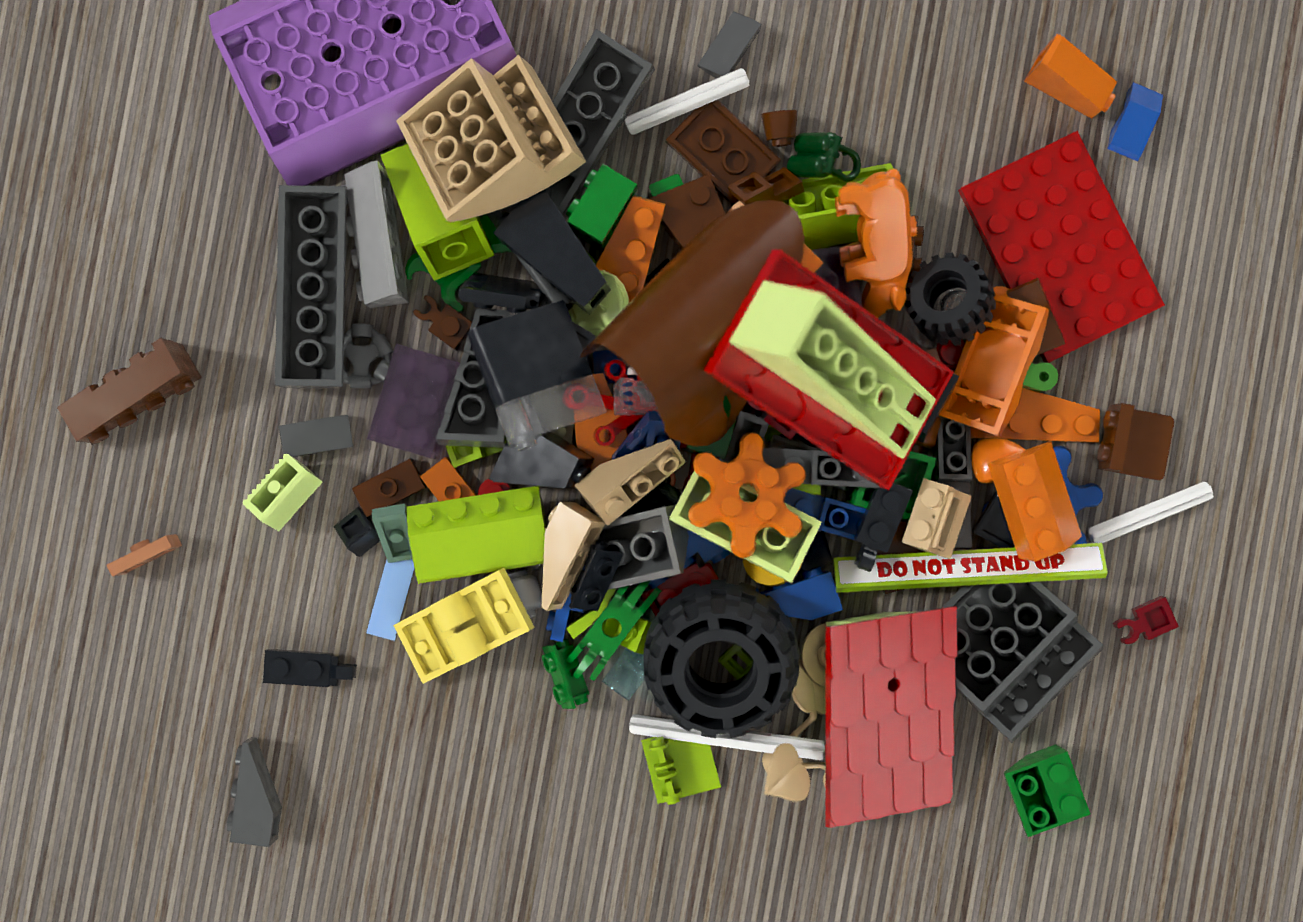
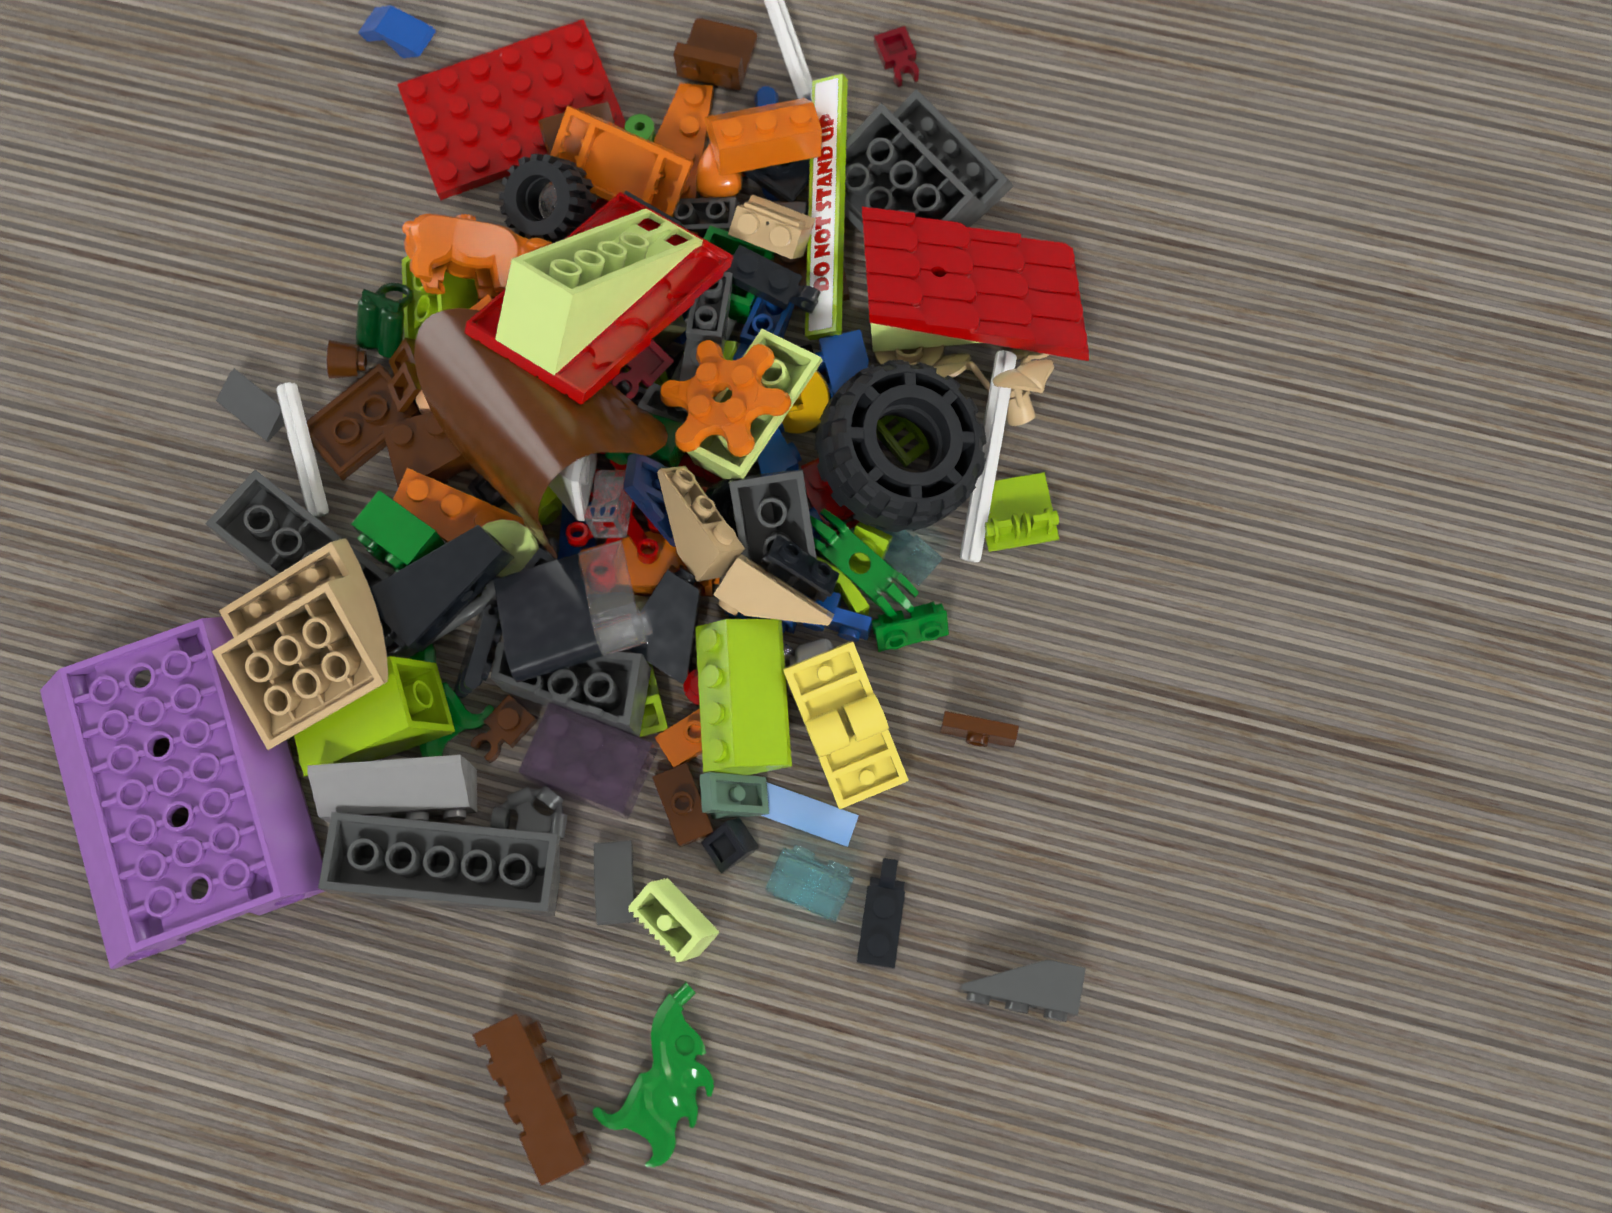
camera: 80 degrees left, 15 degrees down
(143, 553) = (729, 1099): nougat plate -> none
(152, 501) = (670, 1086): none -> green piece
(326, 606) = (810, 883): none -> clear light blue brick
(471, 742) = (979, 730): none -> reddish brown plate
(665, 185) = (387, 476): green tile -> none
(1046, 790) = (1061, 150): green slope -> none
(1072, 78) = (341, 83): orange slope -> none

